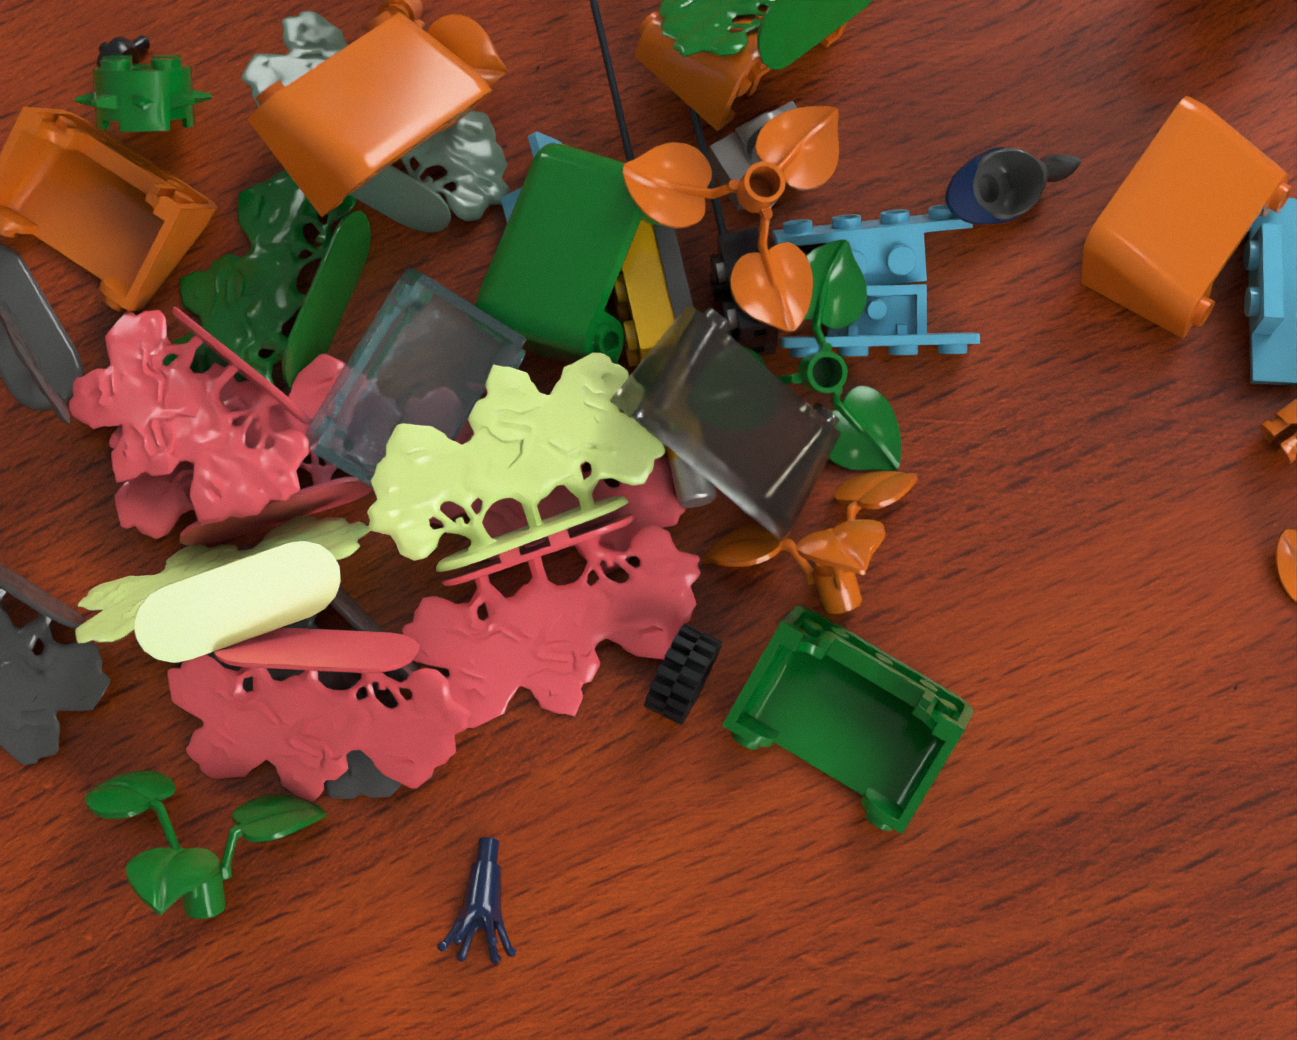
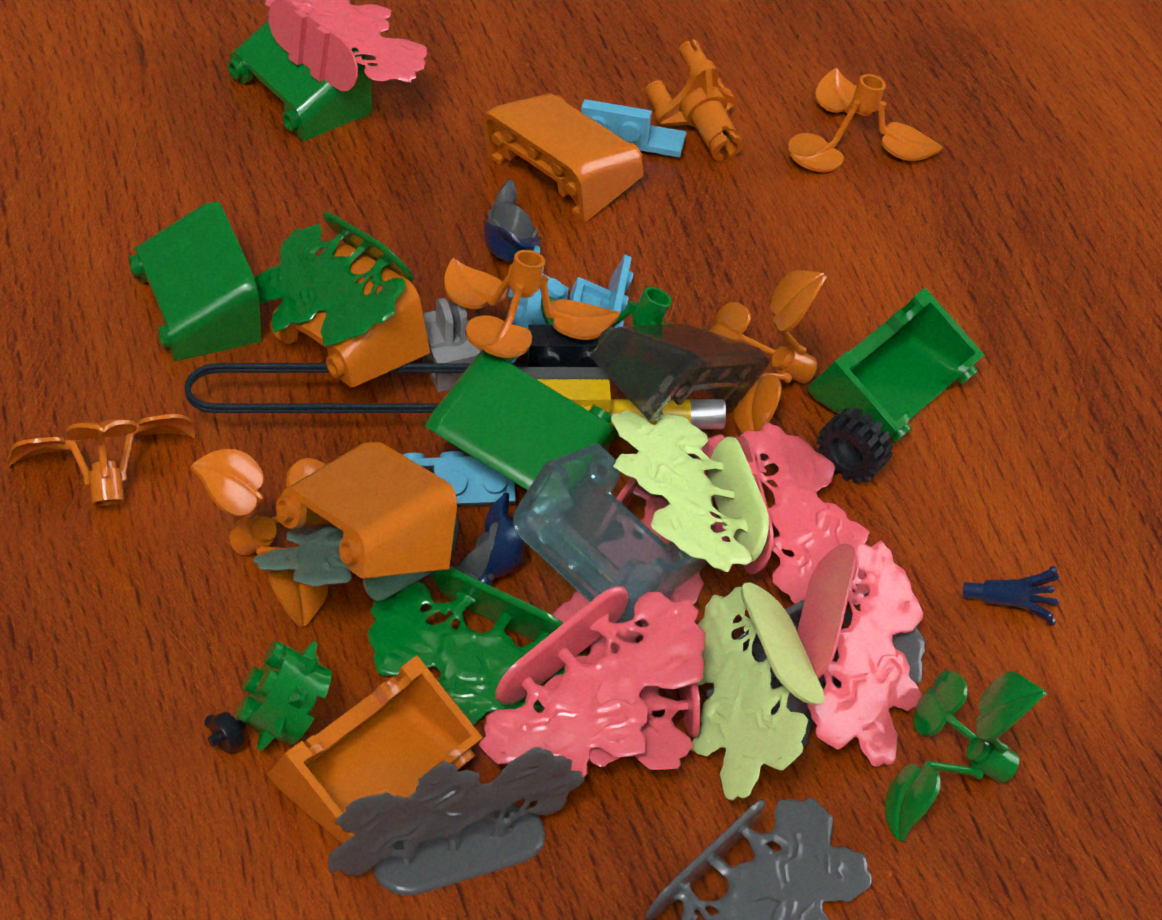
camera: 85 degrees left, 30 degrees down
(391, 258) = (497, 549): none -> dark blue hair

